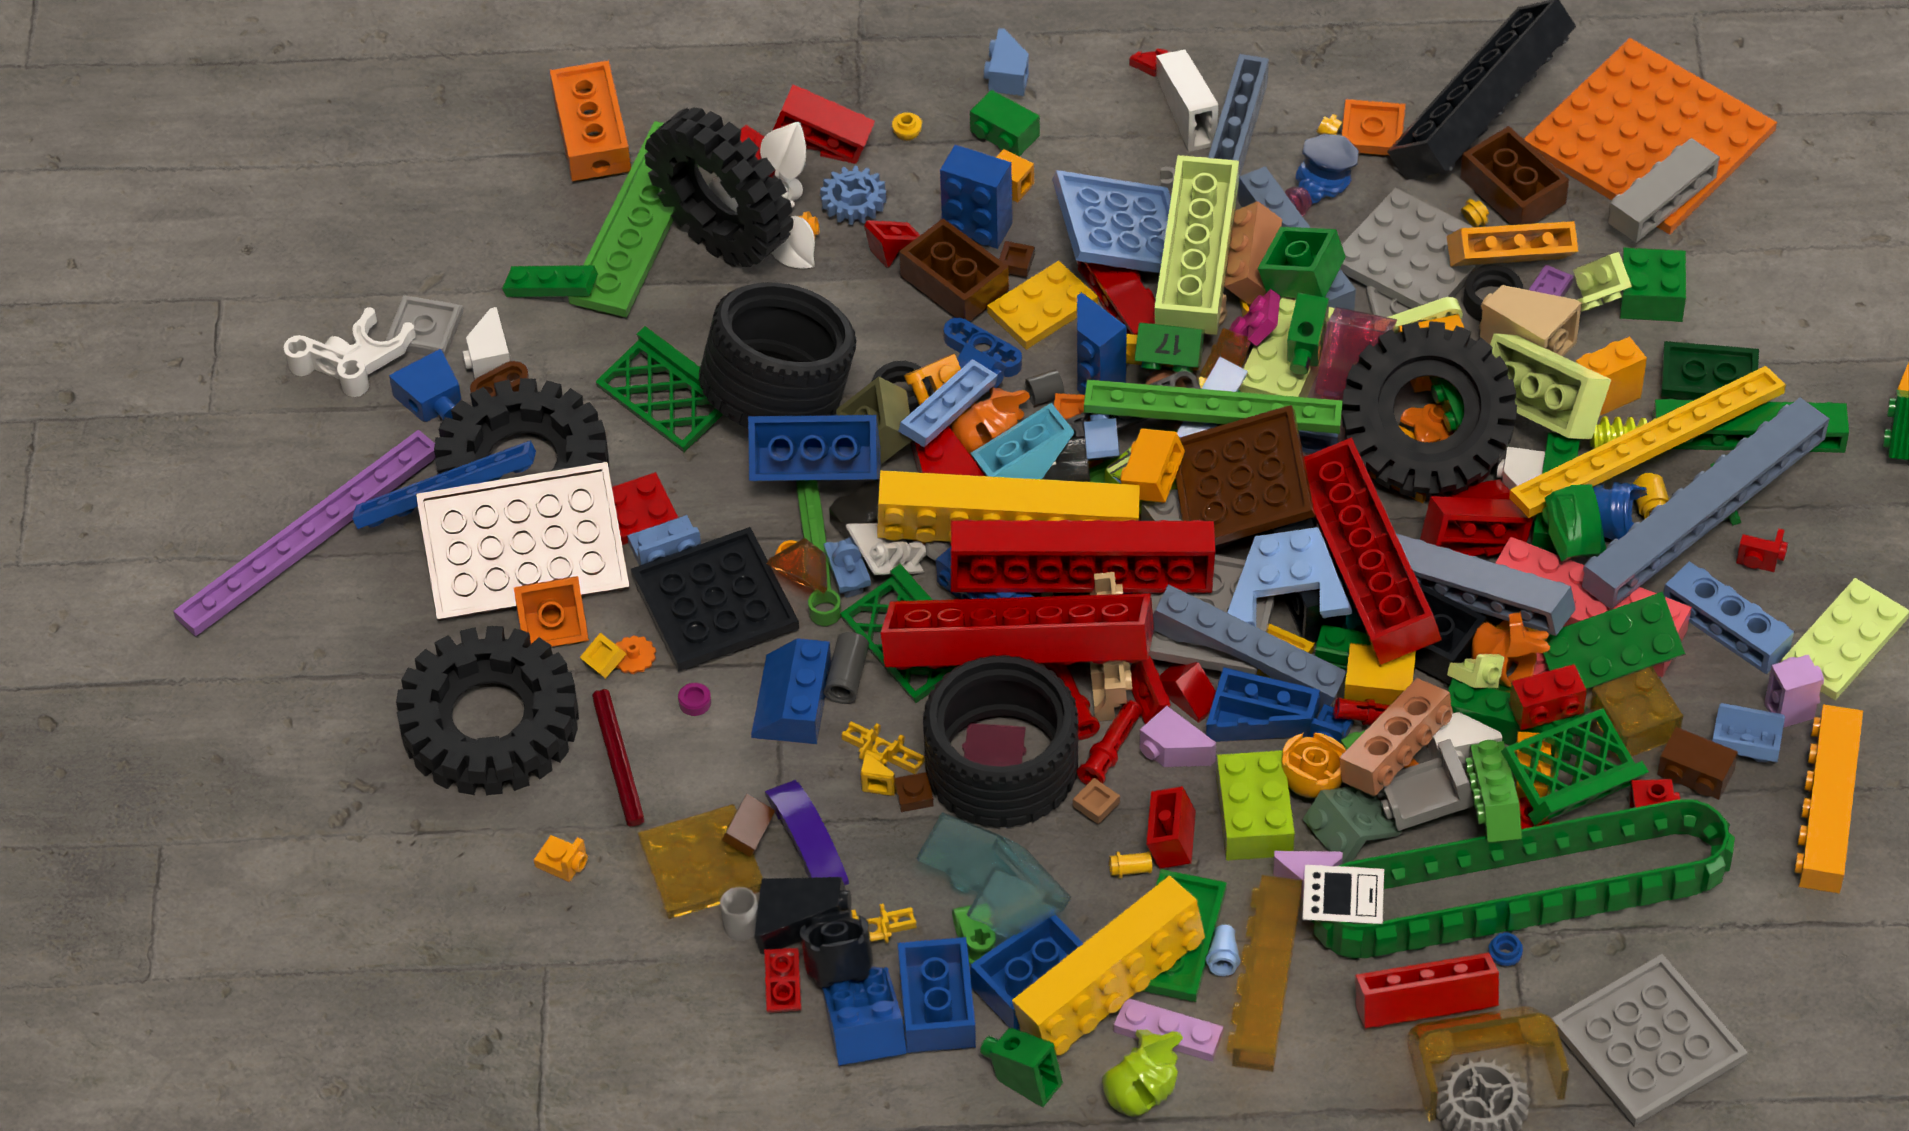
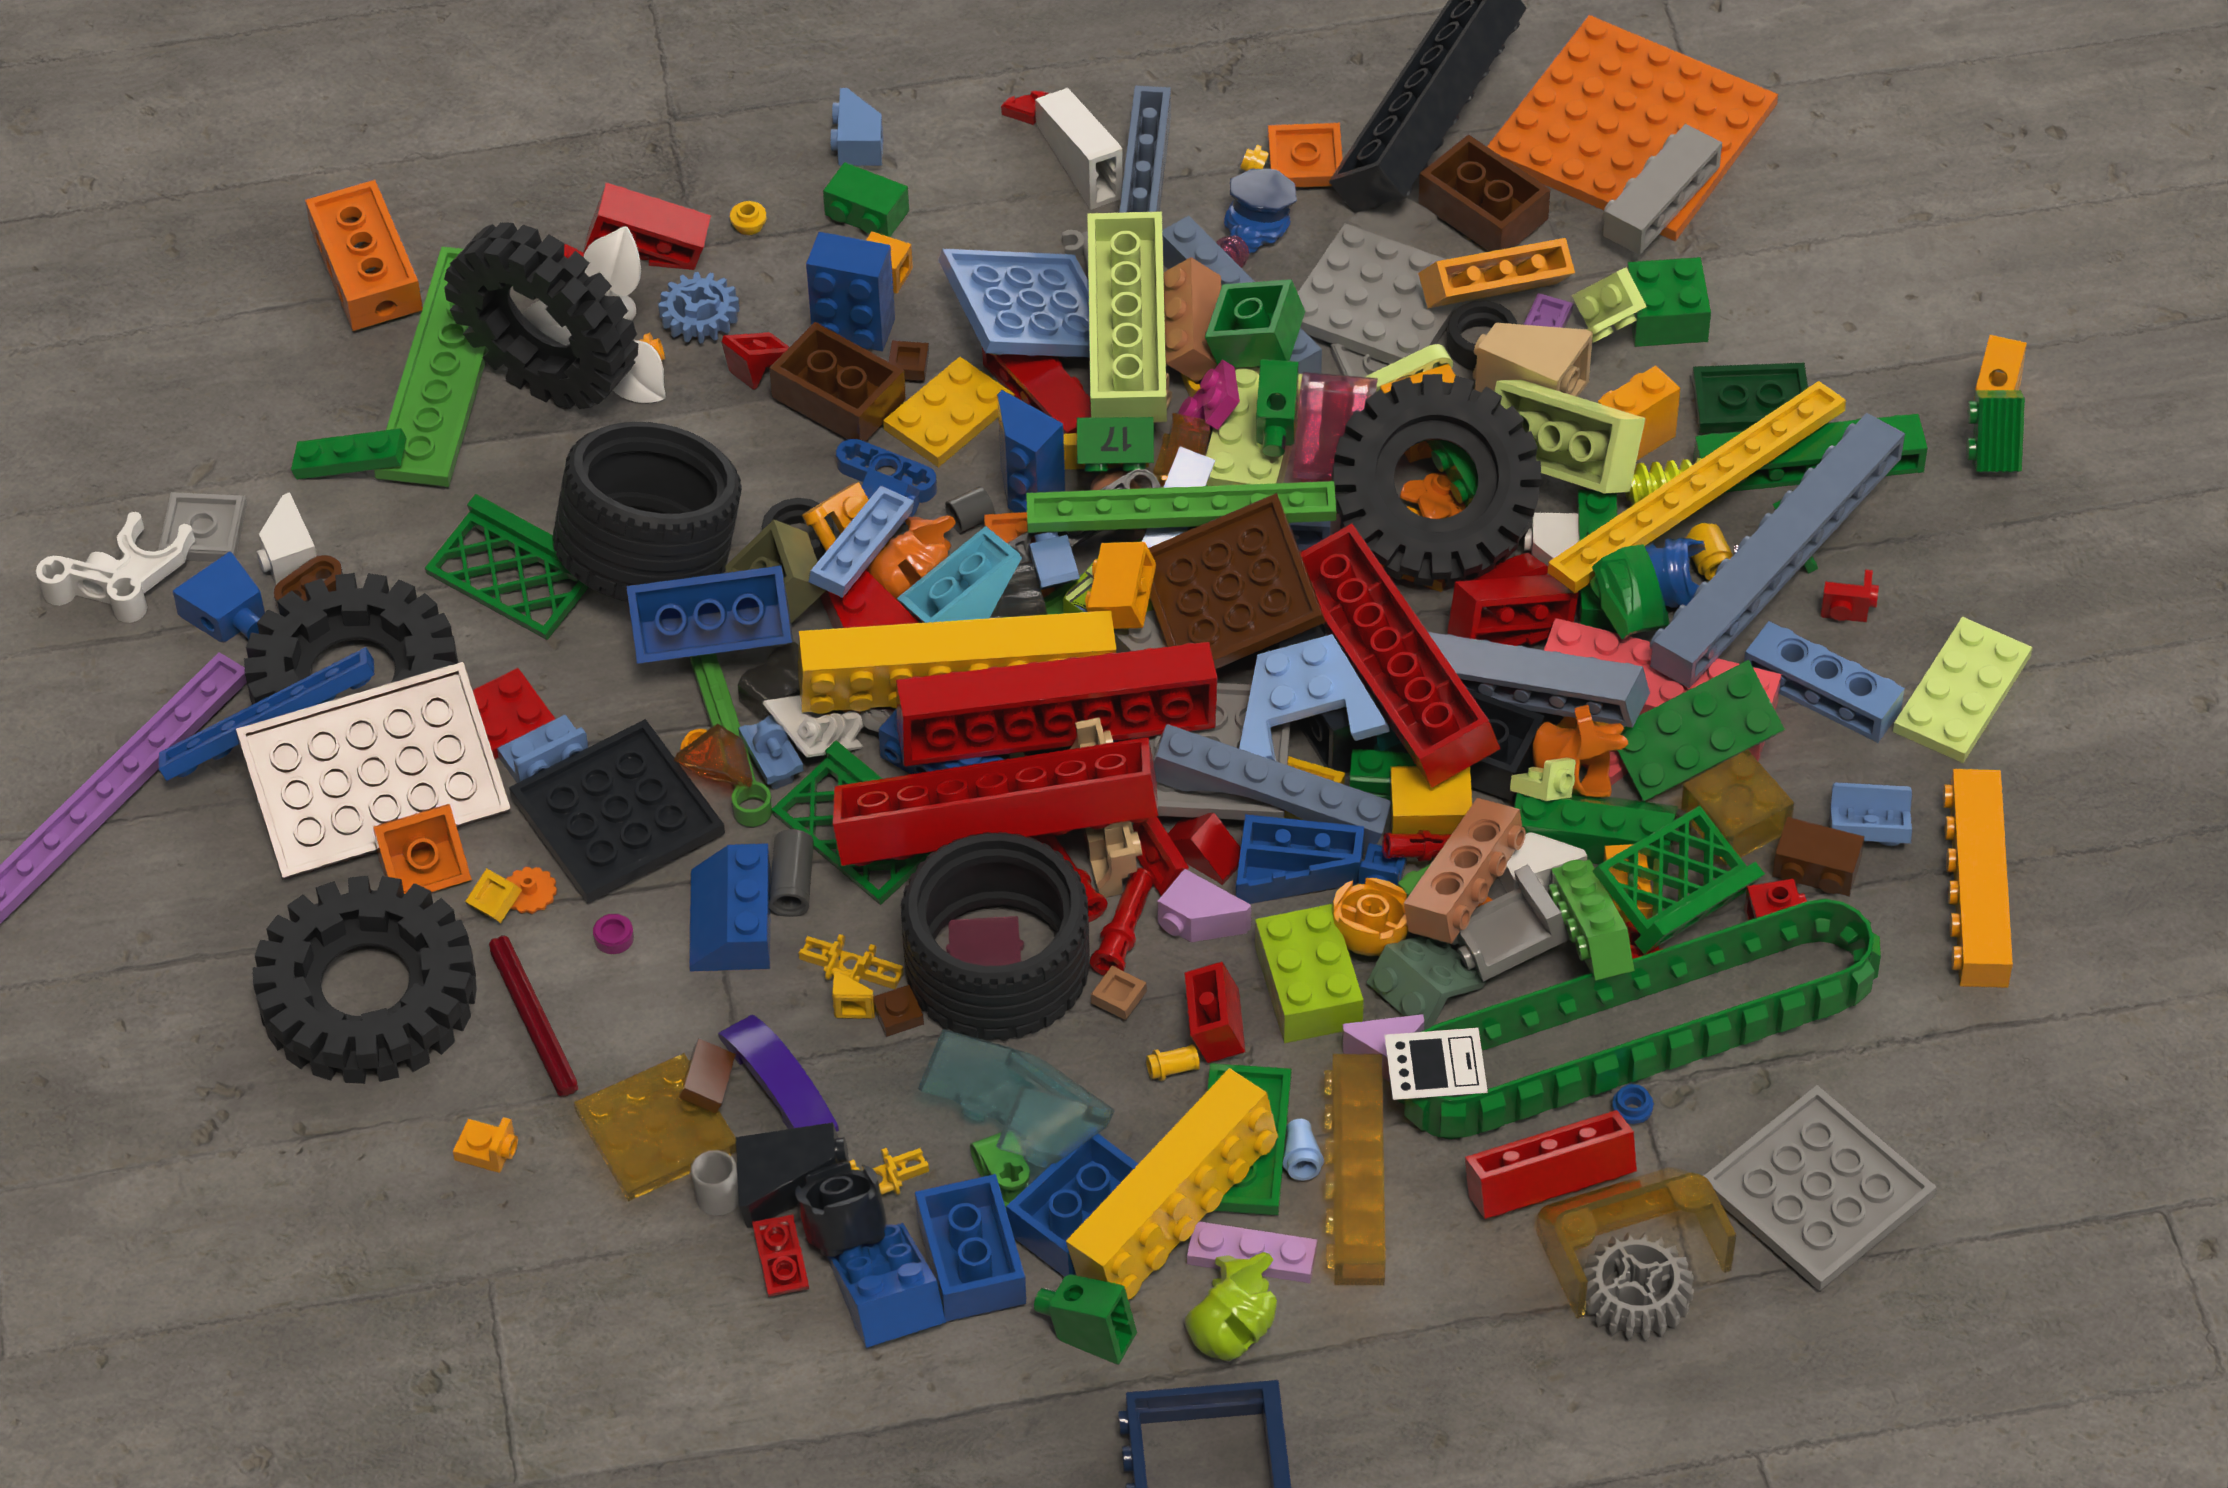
camera: 10 degrees left, 0 degrees up
(1475, 213) = (1444, 242): yellow plate -> none
(1547, 697) = (1635, 800): red brick -> none
(1794, 689) = (1917, 755): lavender brick -> none

